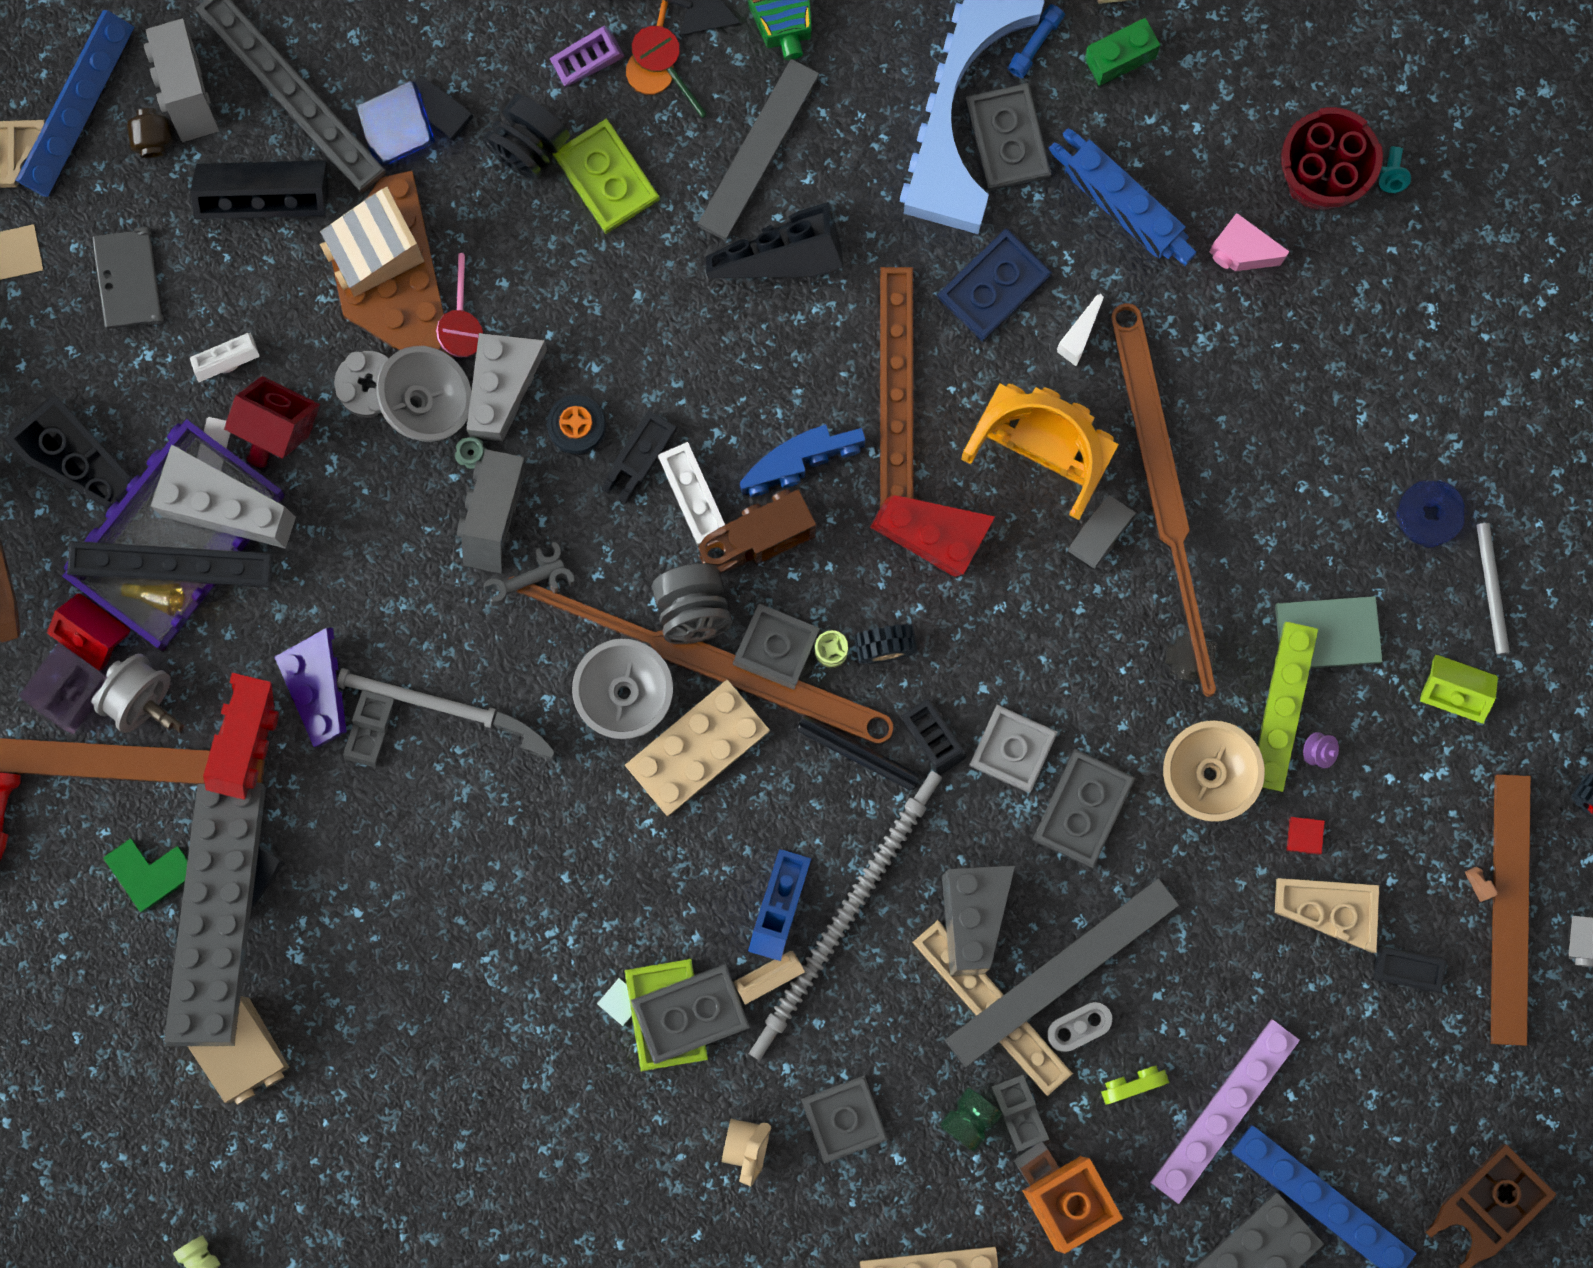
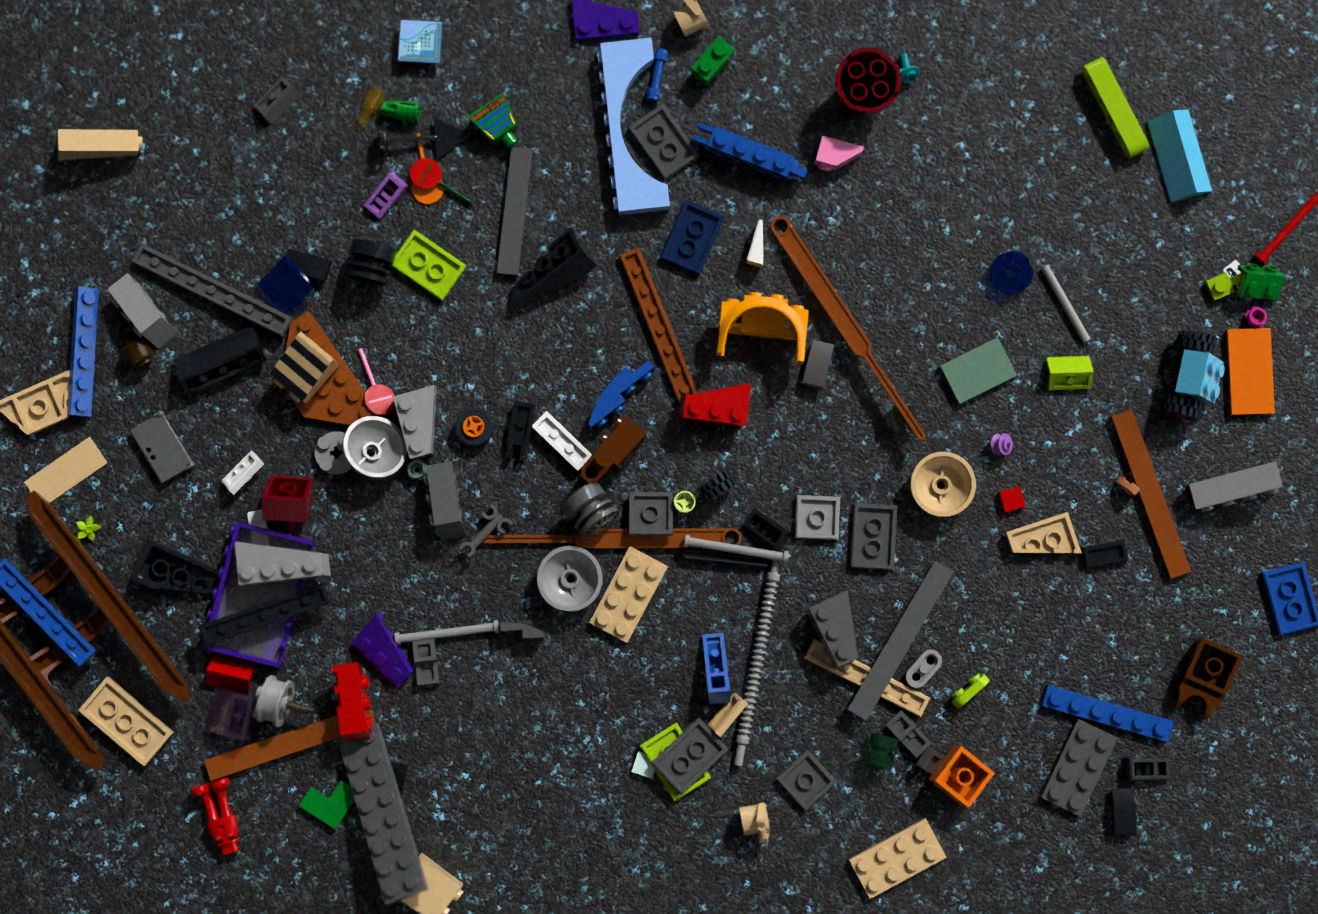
camera: 20 degrees left, 5 degrees up
(163, 597) = (268, 635): clear yellow cone -> none
(878, 745) = (737, 549): none -> light grey bar
(1224, 1111) = (1028, 683): lavender plate -> none
(1285, 701) = (968, 423): lime plate -> none

